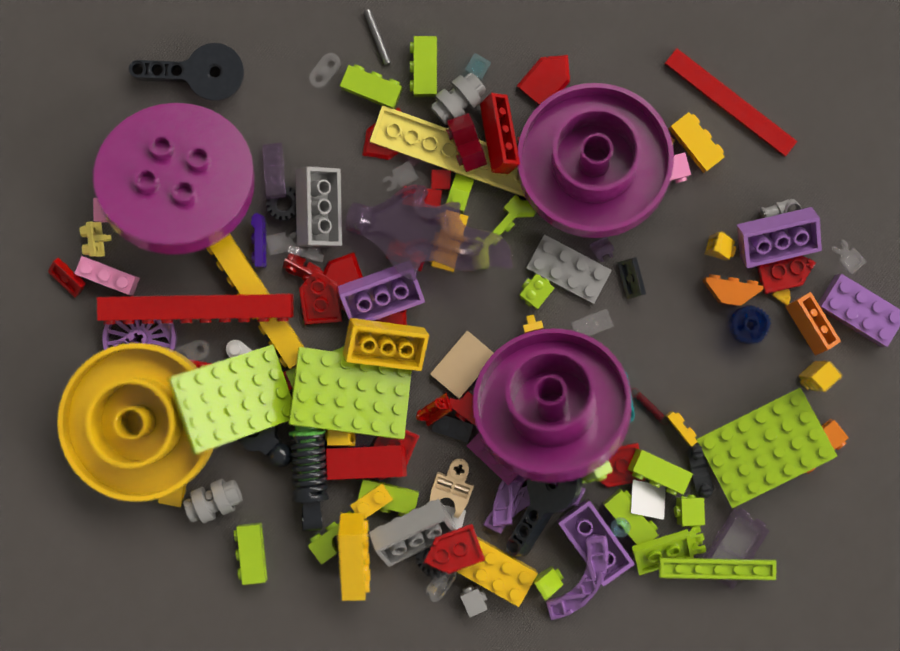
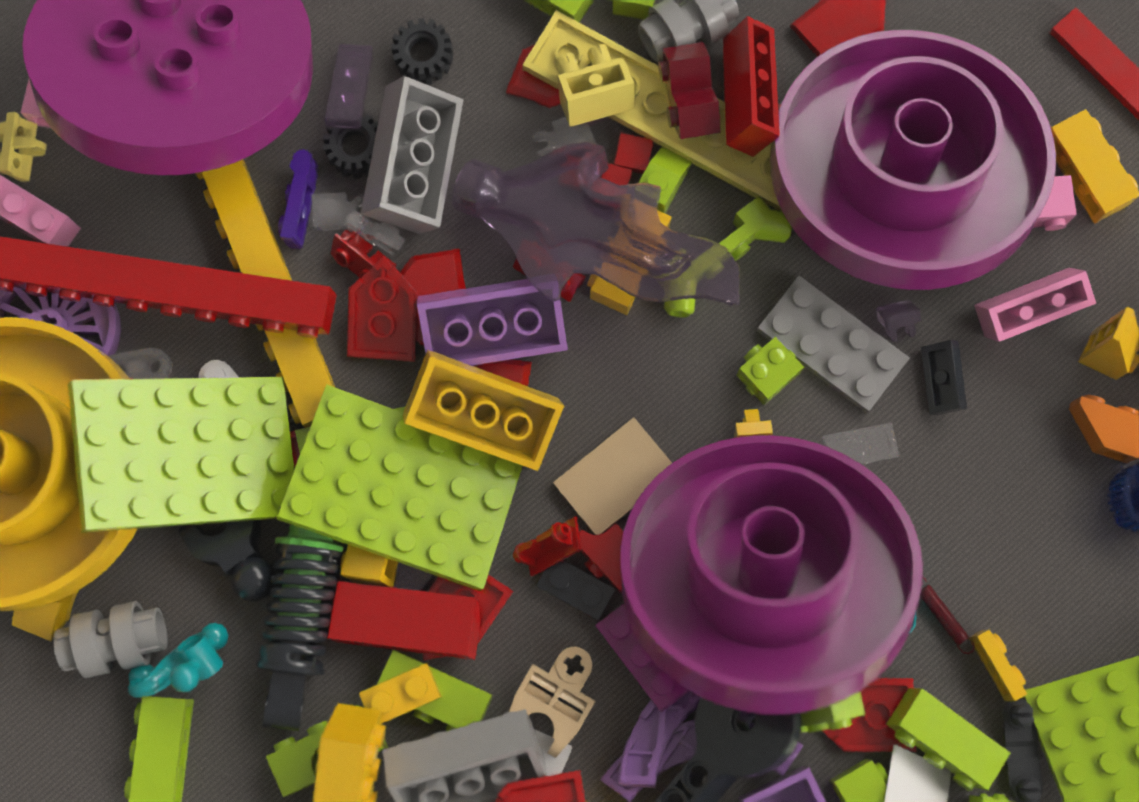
camera: 15 degrees right, 10 degrees down
(256, 507) = (184, 666): none -> teal piece
(304, 131) = (422, 33): none -> black tyre
(413, 153) = (594, 90): none -> light yellow brick
(675, 229) = (1035, 304): none -> bright pink brick

